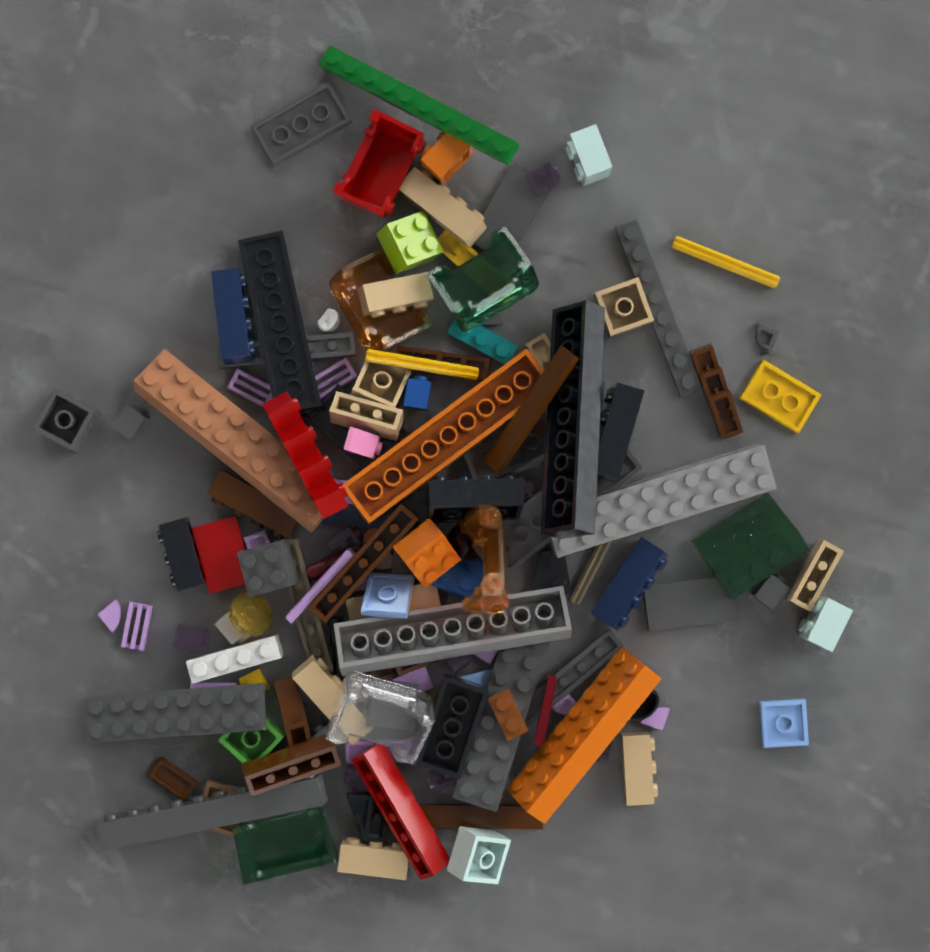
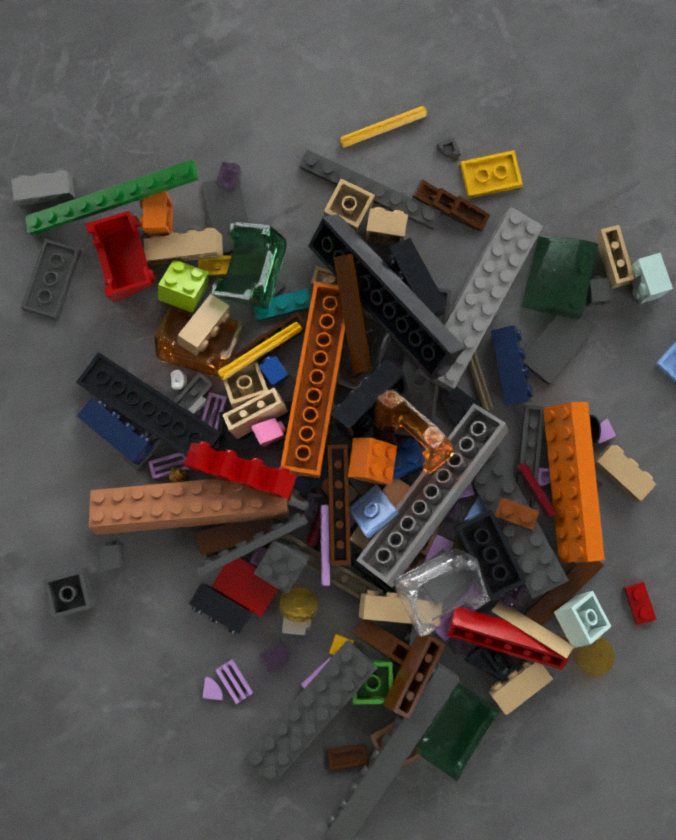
camera: 45 degrees left, 5 degrees down
(234, 658) = (314, 642): white brick -> none
(249, 523) = (245, 547): none -> dark grey plate
(250, 405) = (177, 475): none -> pearl gold plate
(320, 361) = (195, 408): none -> light grey tile
(331, 525) = (297, 501): none -> light grey tile
(369, 34) = (43, 188): none -> light grey brick
(429, 823) = (533, 629): none -> tan sticker
(460, 897) = (595, 658): none -> clear yellow tile
(543, 889) = (639, 603): none -> red plate
(589, 155) = (243, 136): light aqua brick -> none
(637, 358) = (386, 226): none -> tan brick

